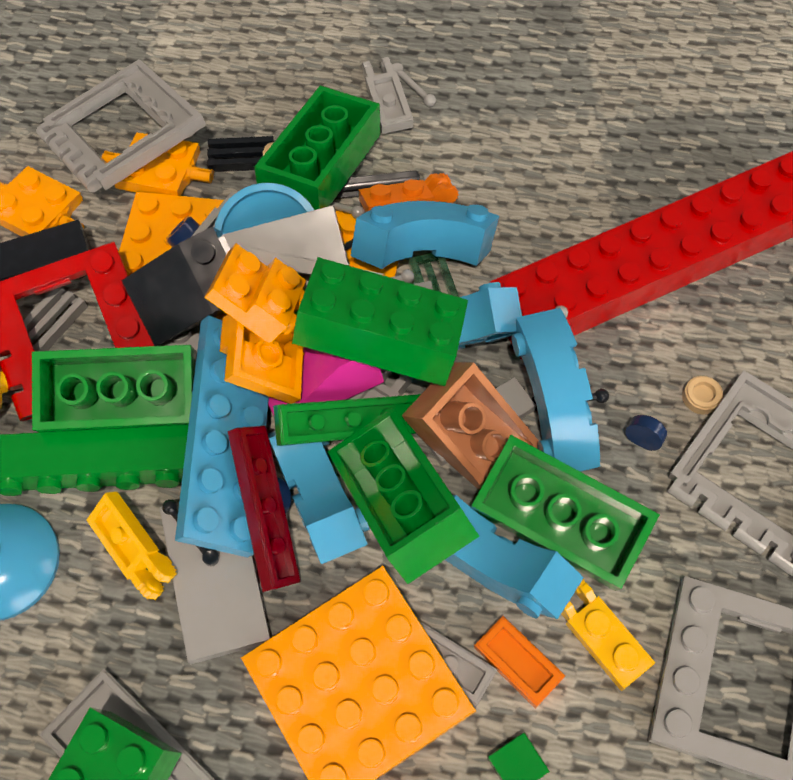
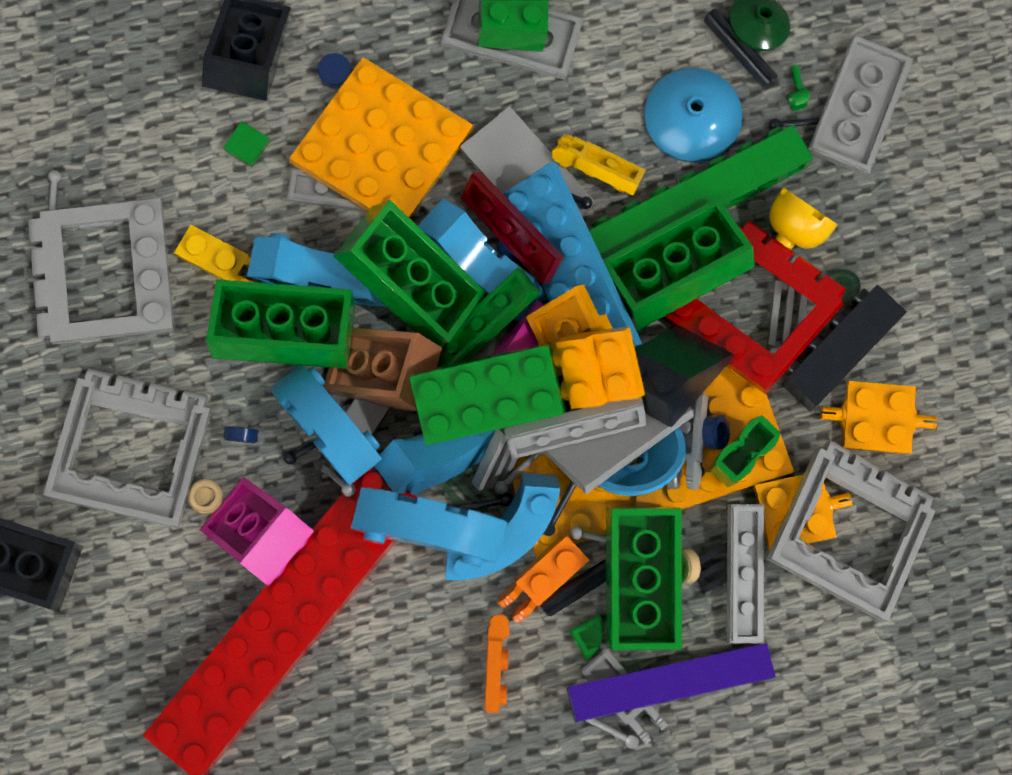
camera: 145 degrees right, 15 degrees up
(167, 199) = (749, 446): none -> green brick
(229, 135) = (745, 573): none -> light grey tile
(360, 81) = (670, 682): none -> dark purple tile
(390, 148) = (588, 636): none -> green tile
(465, 280) = (505, 500): none -> black hinge
(482, 154) = (496, 662): none -> orange hinge
(519, 661) = (273, 213): orange tile -> none
(520, 243) = (429, 524): none -> dark azure brick
(667, 326) = (257, 530): none -> dark pink slope

